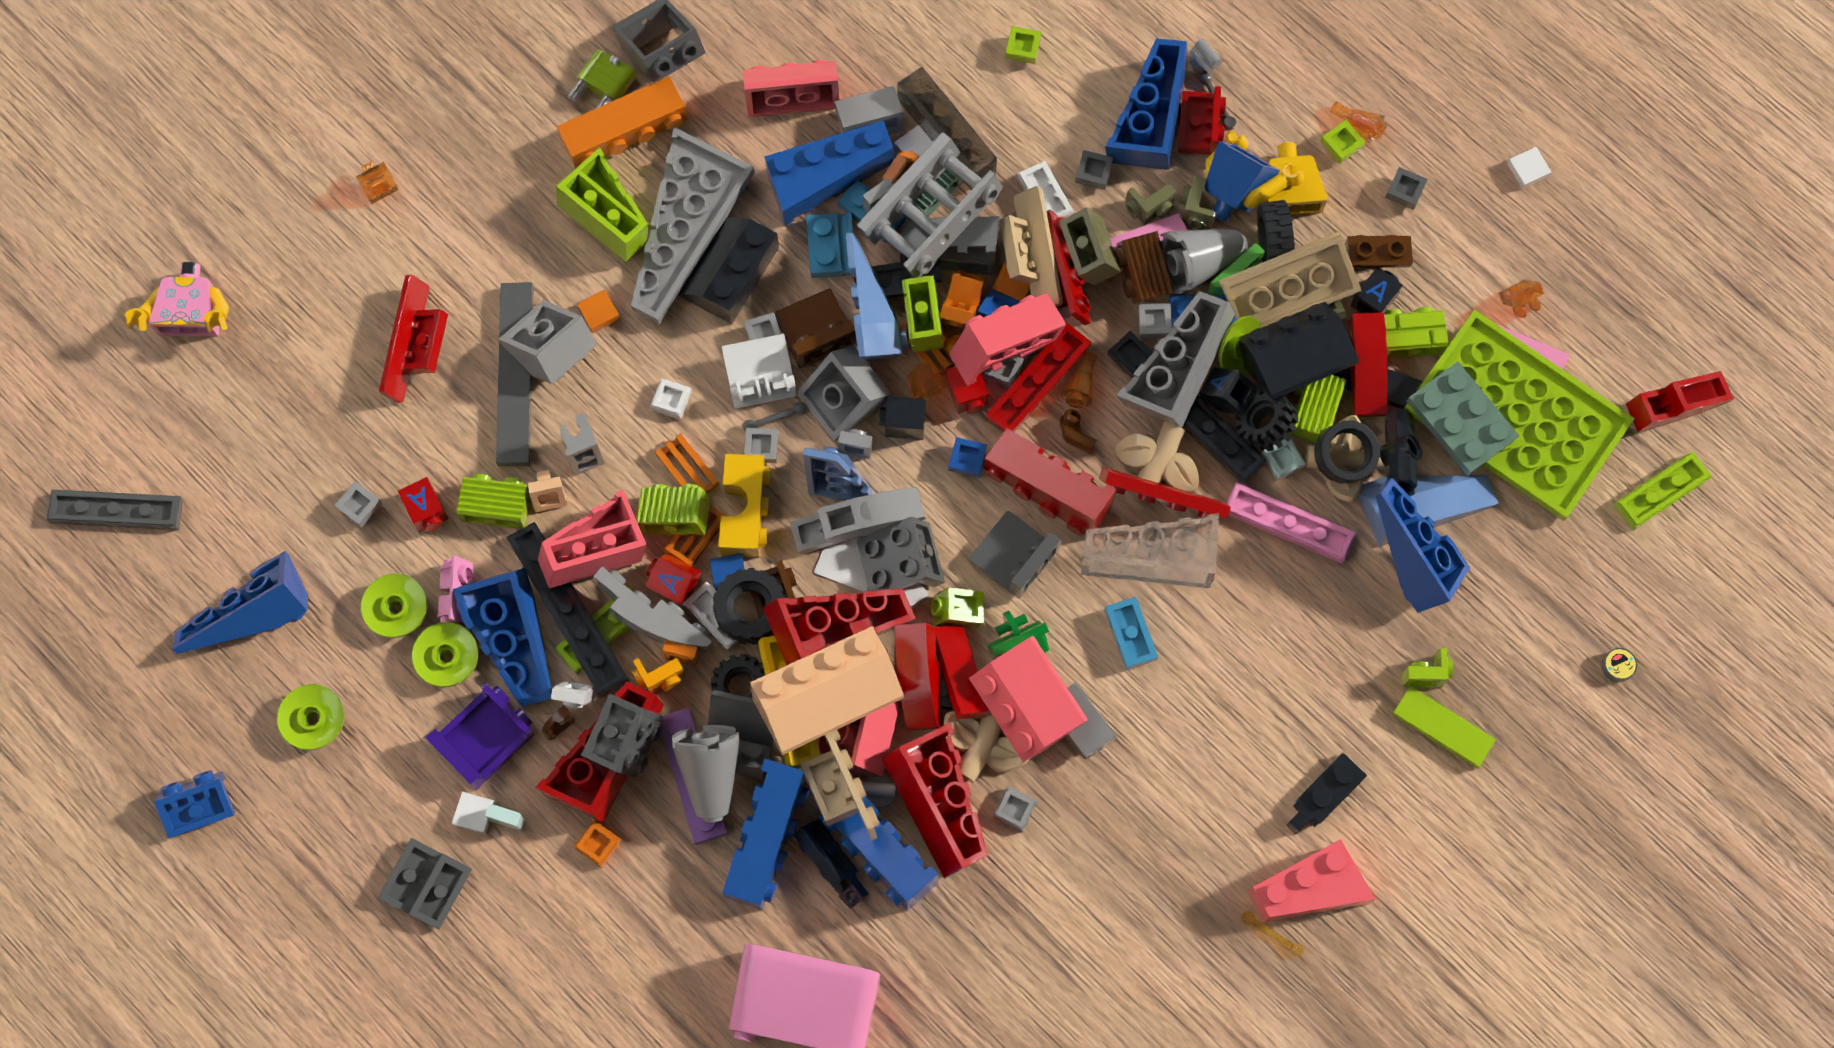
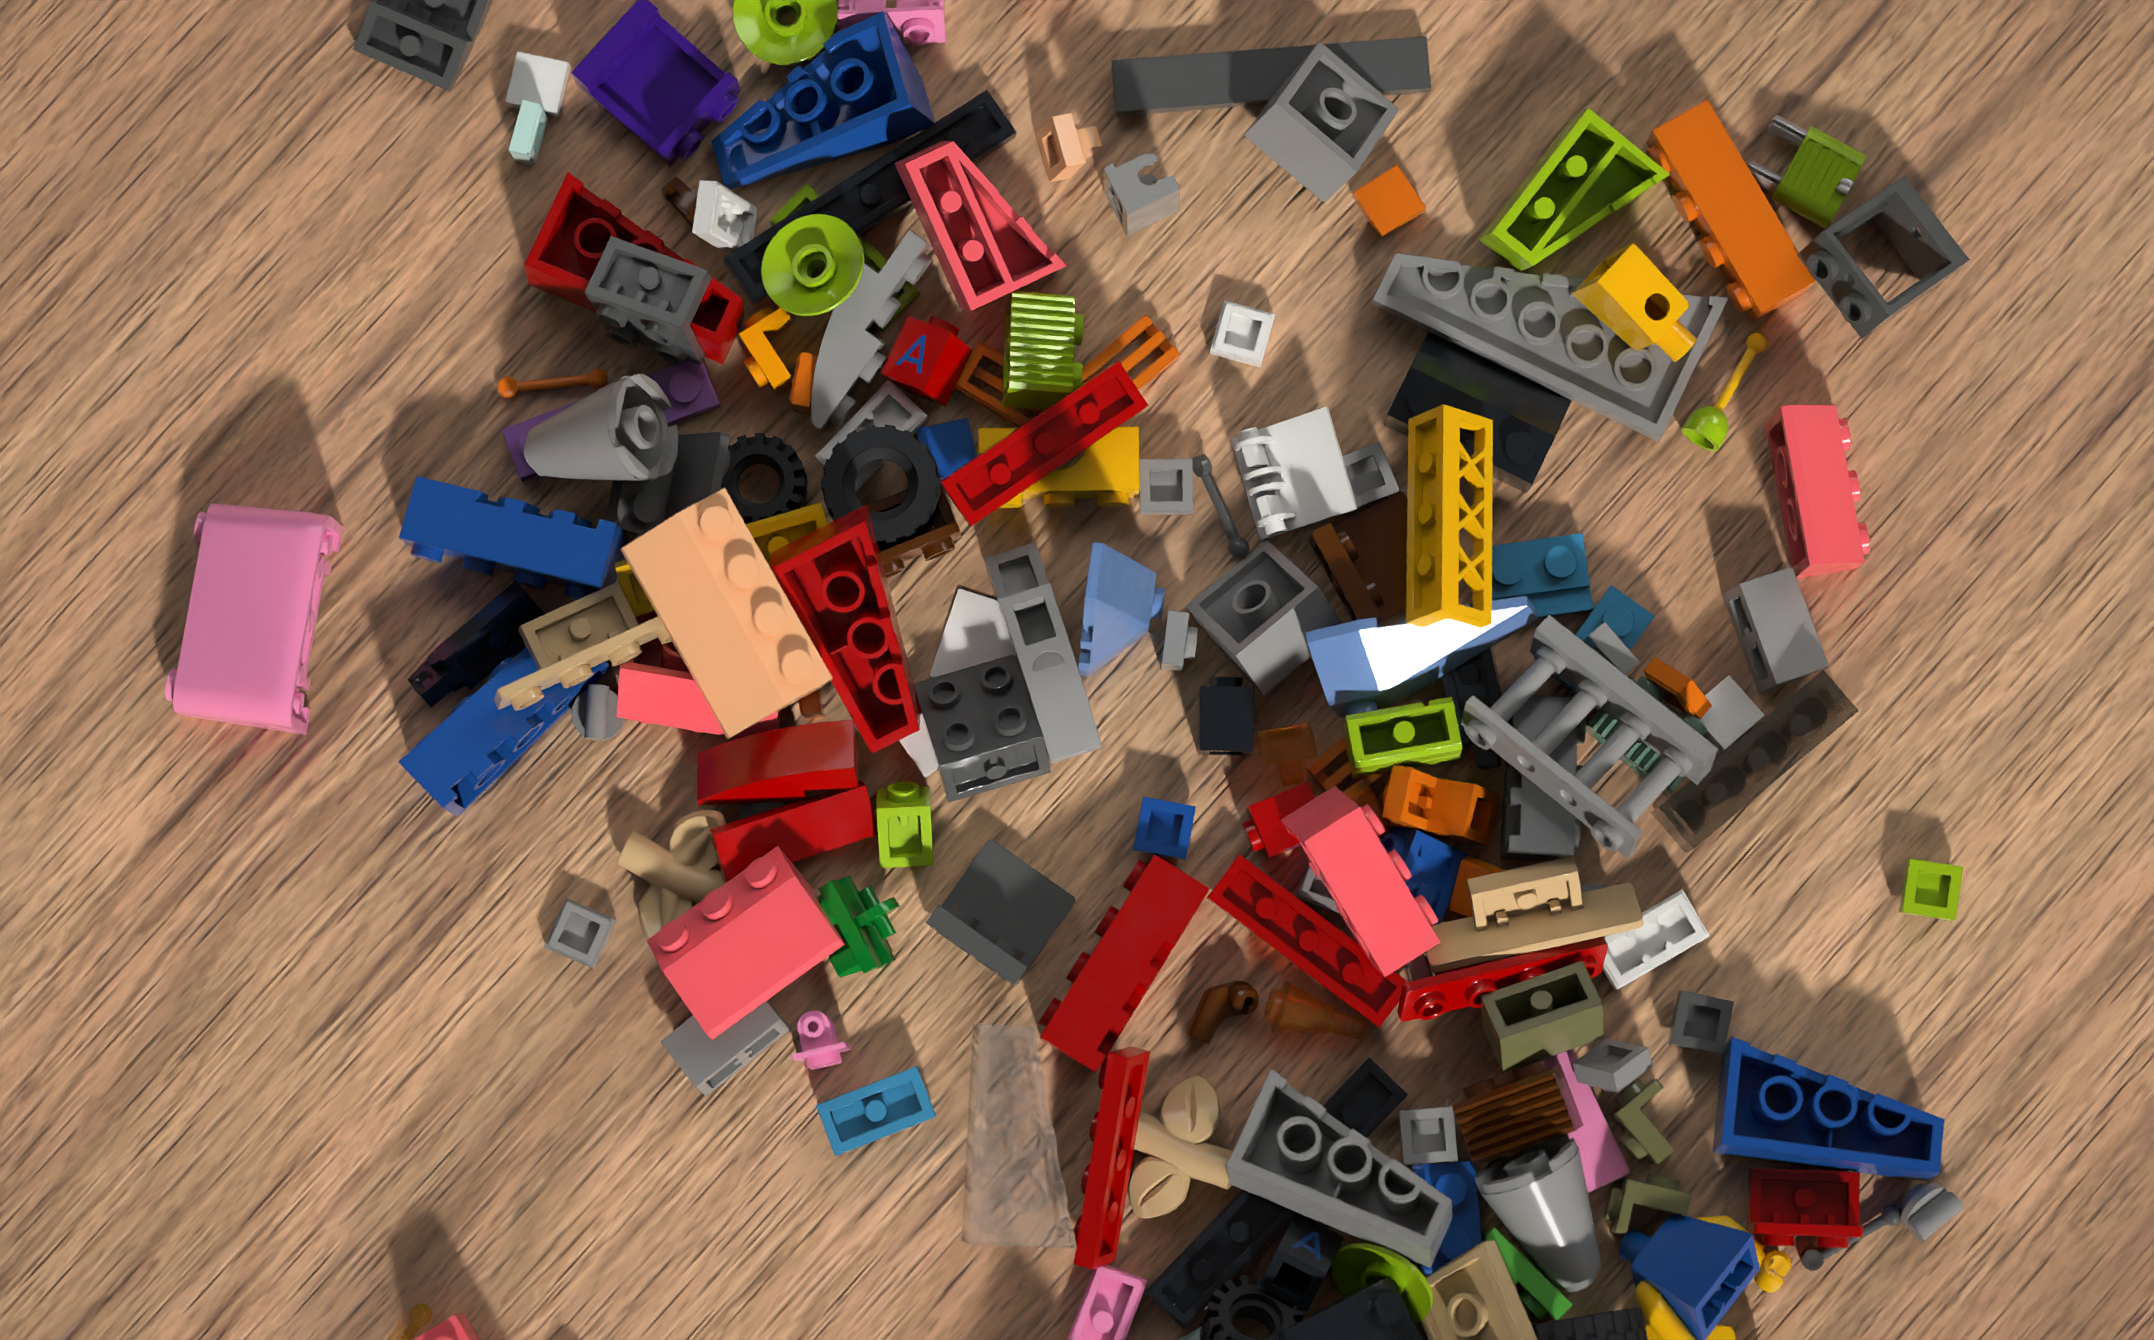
camera: 90 degrees right, 10 degrees up
(493, 501) = (1043, 62): lime brick -> none
(595, 642) = (803, 248): none -> lime dish
(597, 843) = (496, 280): orange tile -> none
(667, 839) = (510, 388): none -> orange hinge
(673, 169) = (1623, 289): none -> yellow torso
(732, 505) = (1043, 443): none -> red plate
(747, 143) = (1709, 424): none -> hinge
(796, 274) = (1439, 512): none -> yellow fence
(826, 167) = (1664, 553): blue wedge -> none
(938, 799) = (593, 800): red wedge -> none
(1089, 659) = (819, 1041): none -> bright pink hinge
(1118, 215) = (1612, 1065): none -> light grey plate

